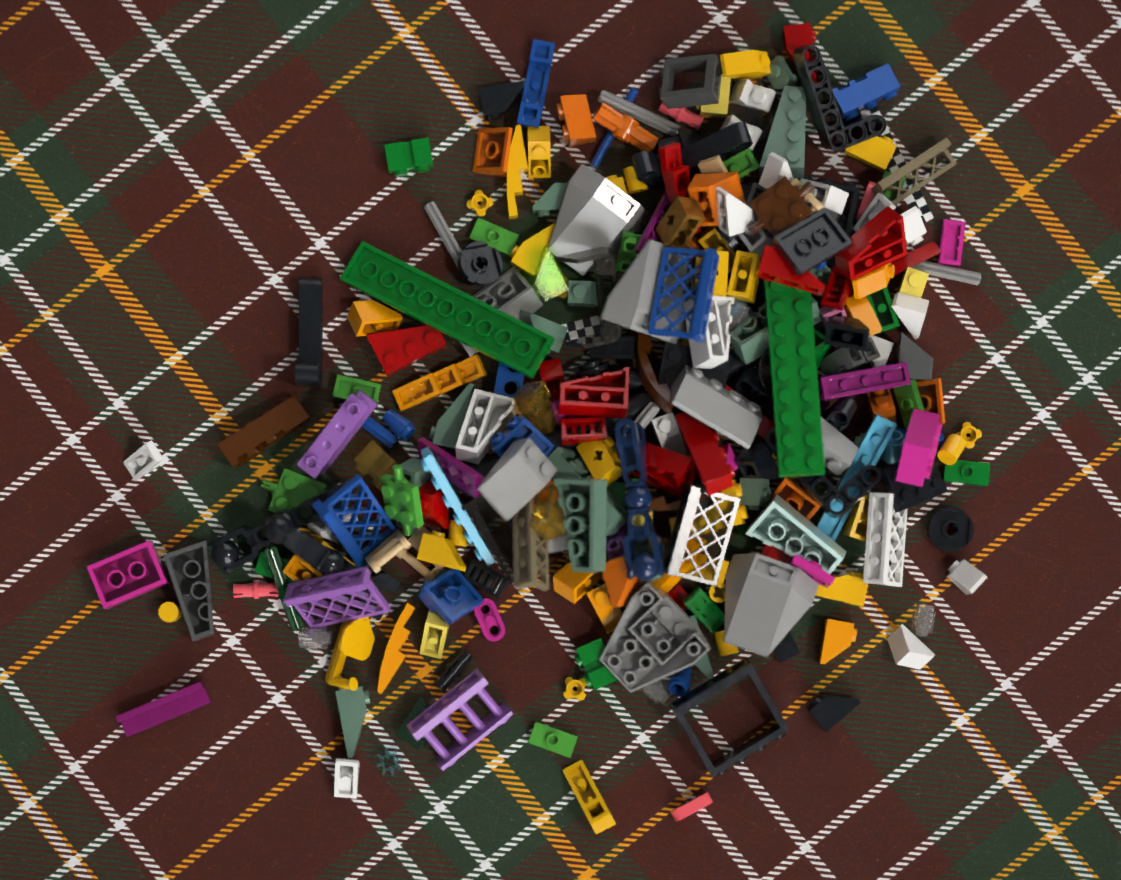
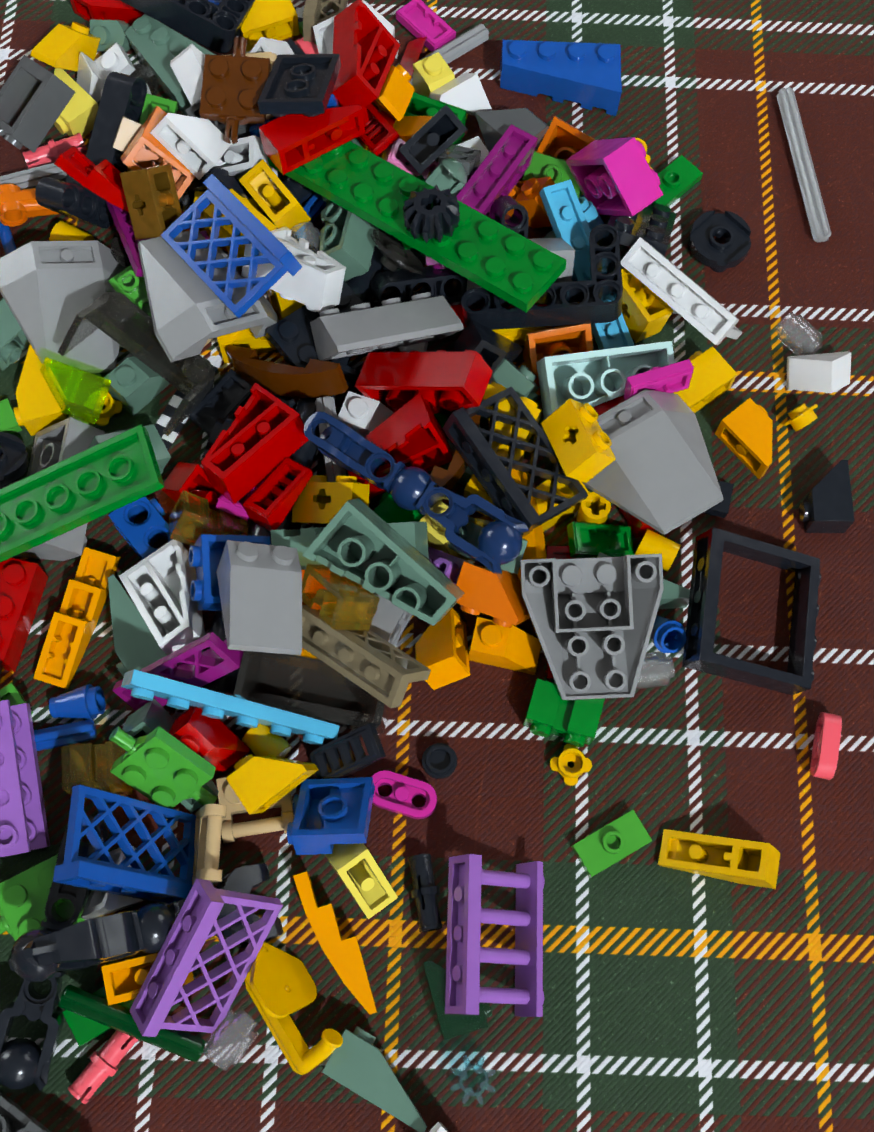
camera: 50 degrees left, 15 degrees down
(521, 623) = (439, 761): none -> black plate
(739, 557) = (578, 440): none -> yellow brick
(791, 376) = (431, 213): none -> black gear
(832, 361) = (448, 175): none -> sand green plate
(872, 658) = (801, 416): none -> yellow plate
(965, 576) = (789, 255): white slope -> none
(987, 353) = (564, 71): none -> blue wedge
(1047, 536) = (803, 165): none -> light grey axle

